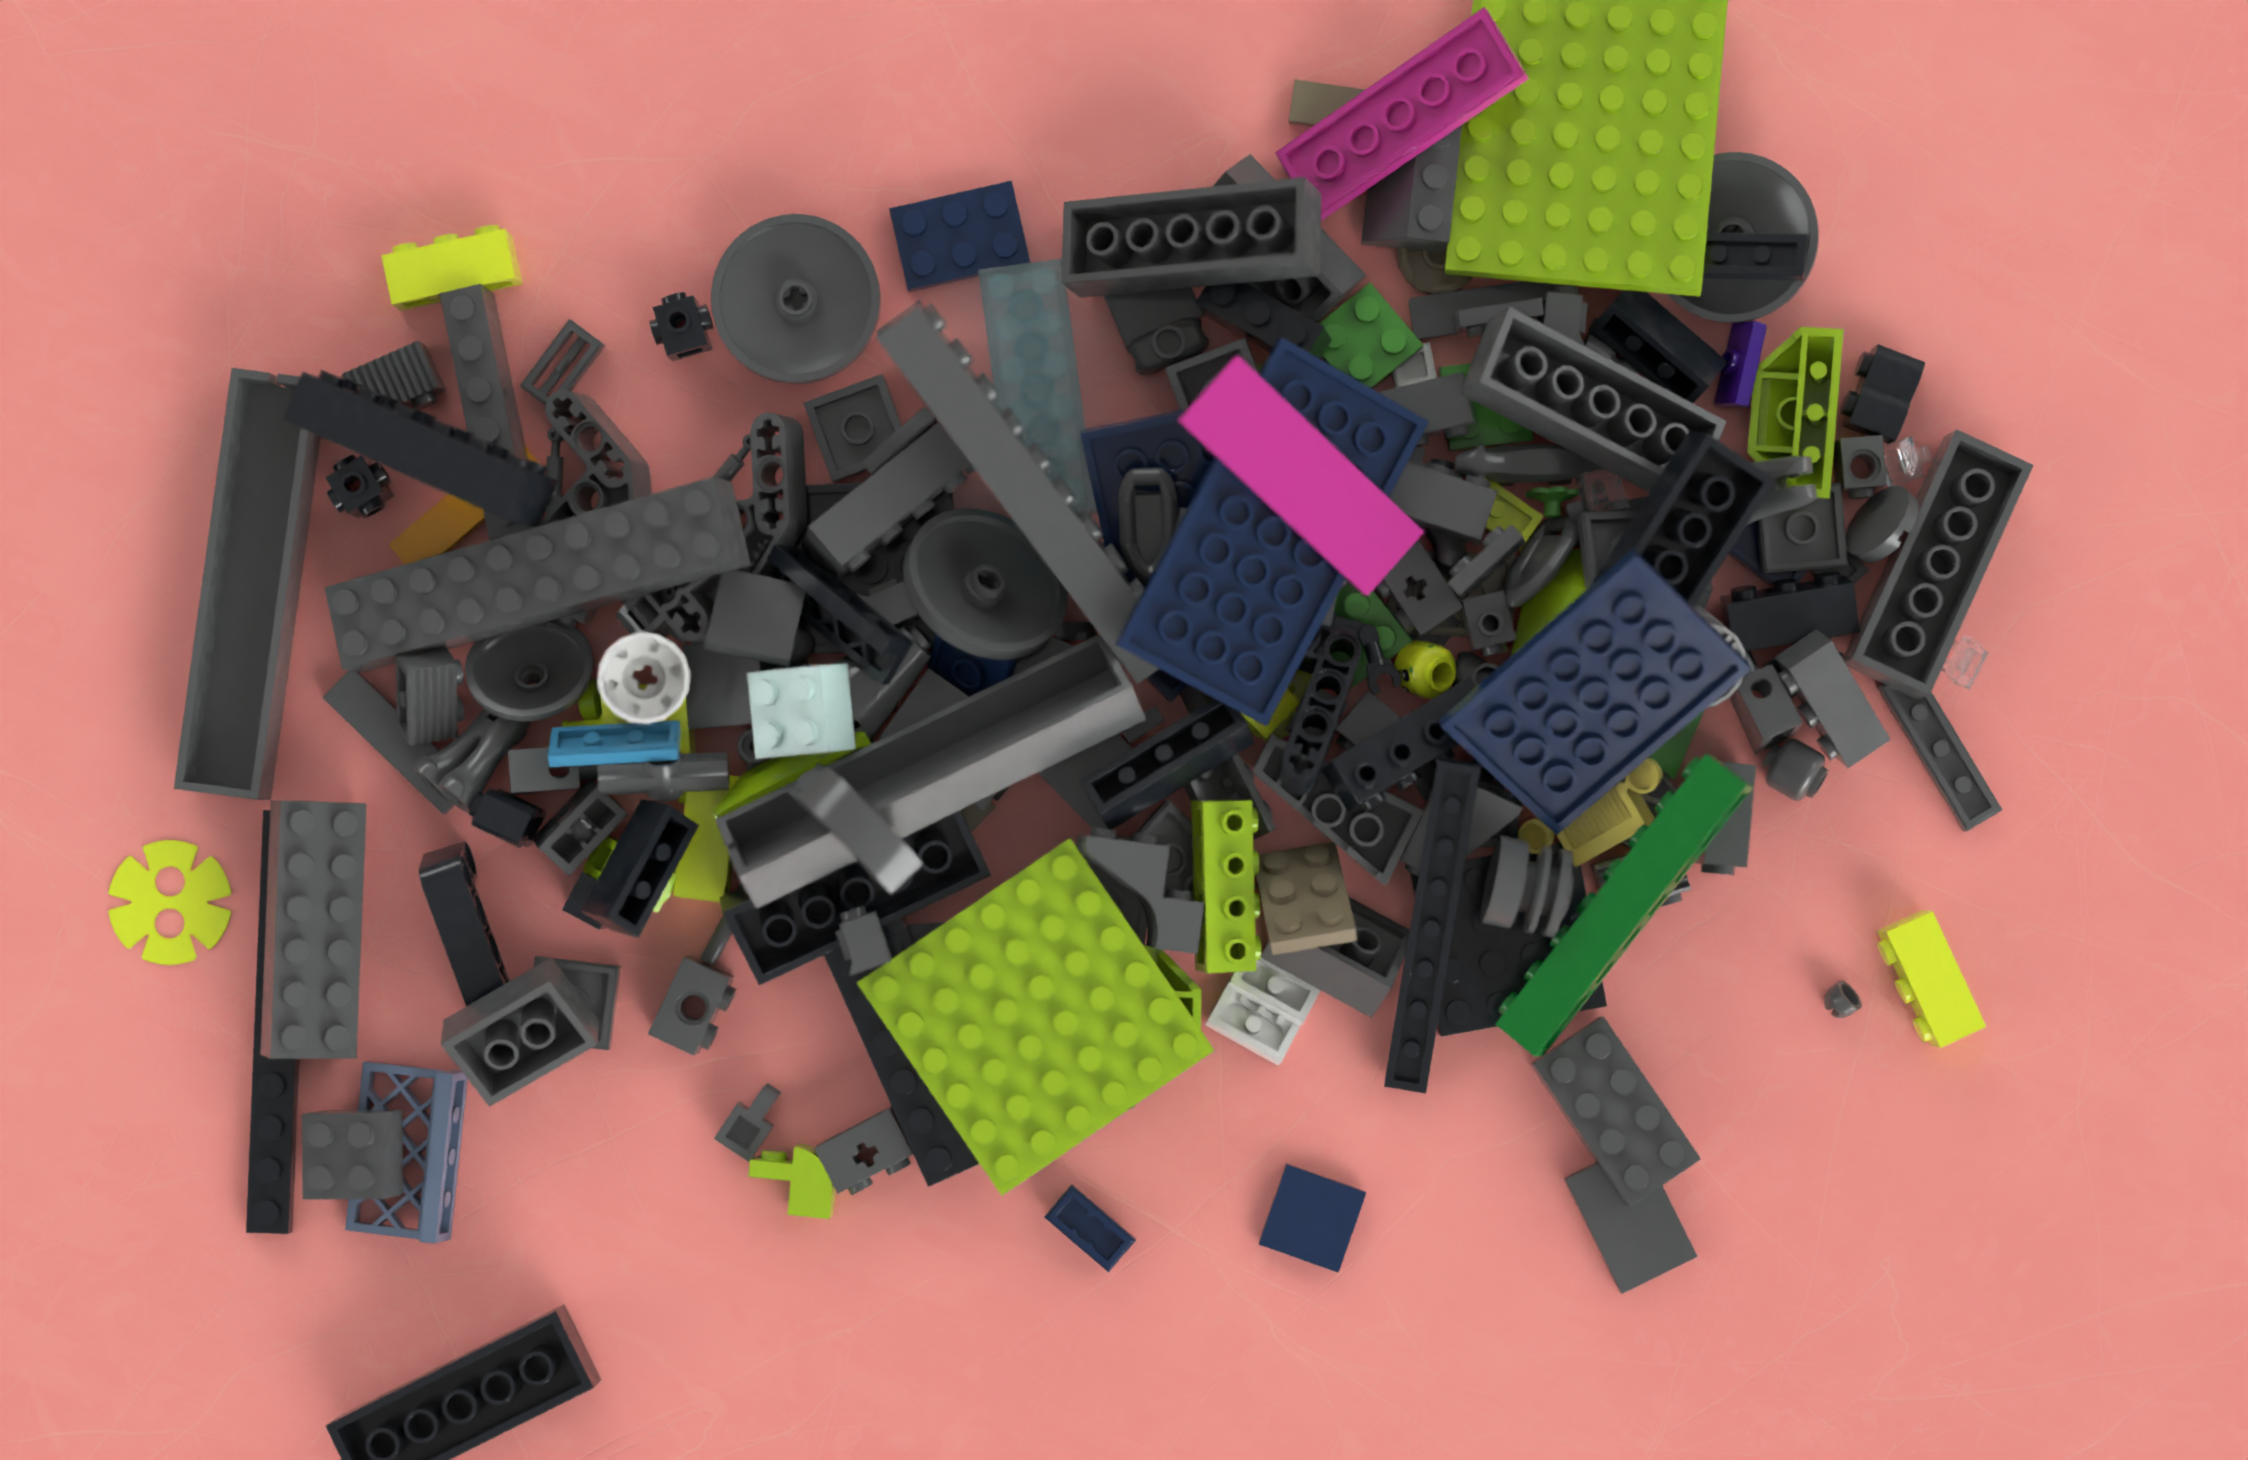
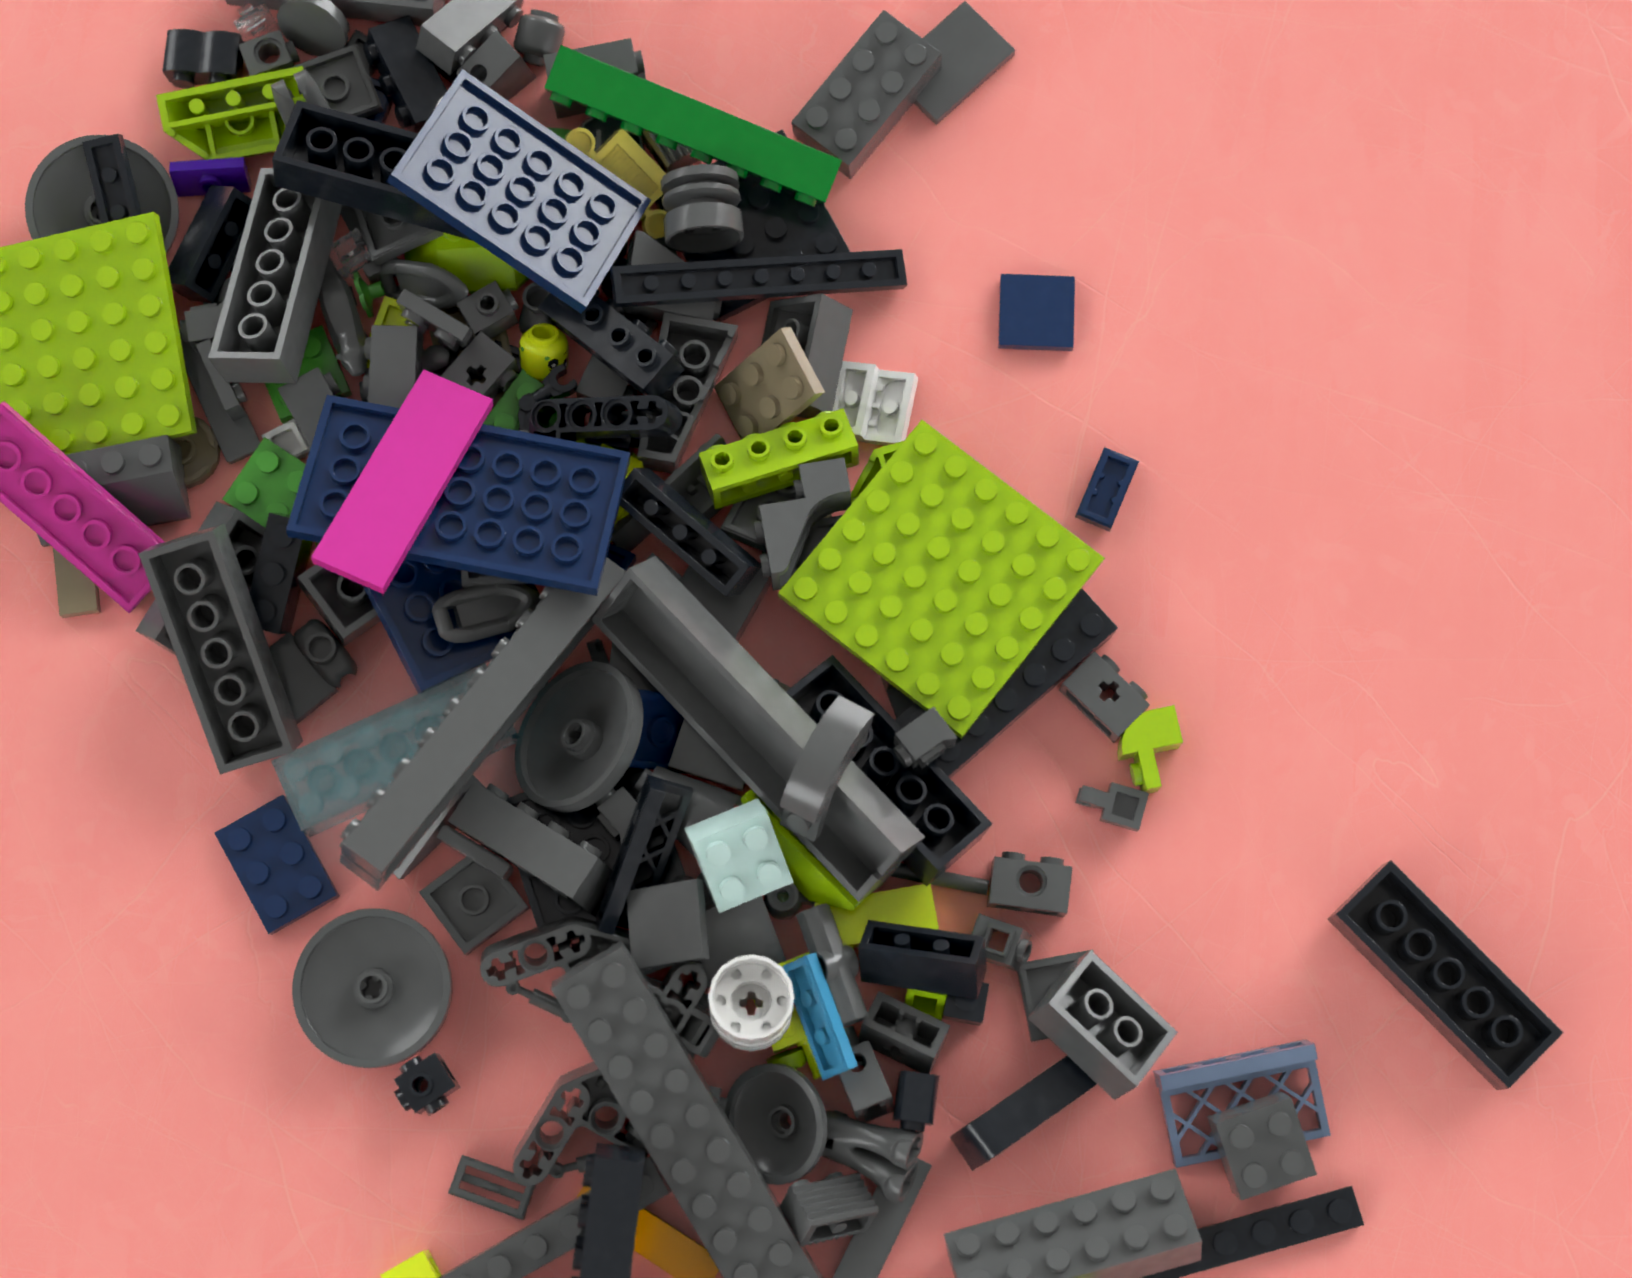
camera: 110 degrees left, 10 degrees down
(630, 972) = (1017, 946): none -> dark grey window

